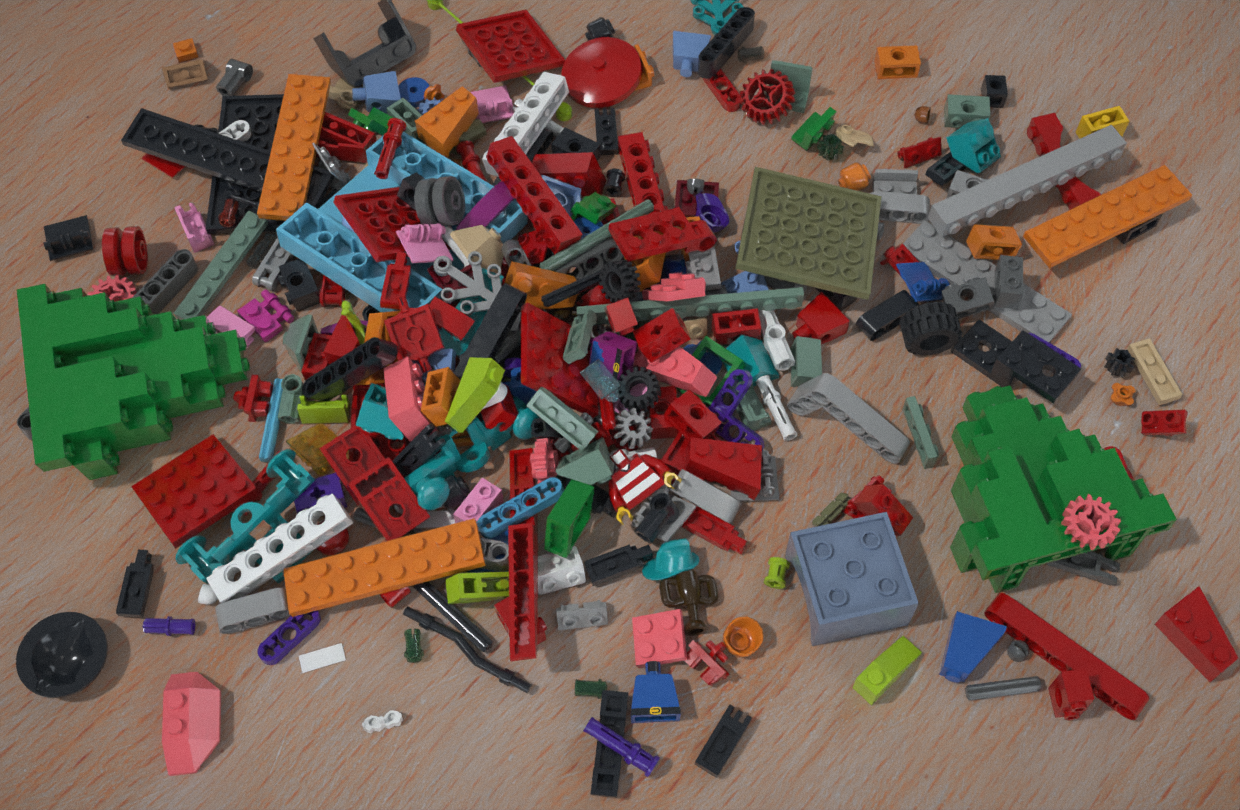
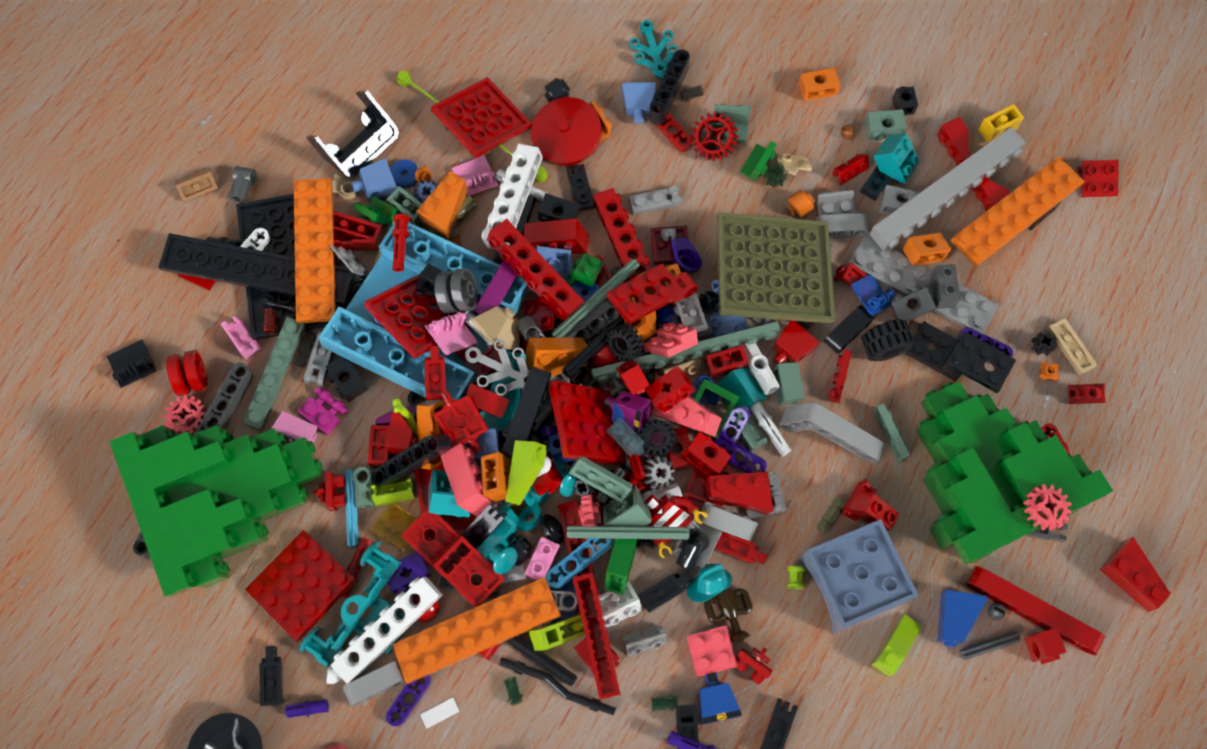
camera: 10 degrees left, 10 degrees up
(185, 50) = (190, 161): orange plate -> none
(299, 339) = (358, 433): sand green slope -> none
(331, 293) = (375, 383): red piece -> none
(469, 158) = (470, 236): red pin -> none
(497, 473) = (552, 528): none -> black gear
(579, 337) = (600, 400): sand green hinge -> none
(582, 481) = (627, 532): none -> sand green axle
(613, 185) = (597, 237): black bush -> none
(689, 155) = (655, 200): none -> light grey plate
(727, 263) = (709, 302): none -> black gear
(743, 636) = (779, 639): orange hair -> none
(869, 364) = (839, 378): none -> red hinge
(1213, 198) = (1100, 178): none -> red hinge

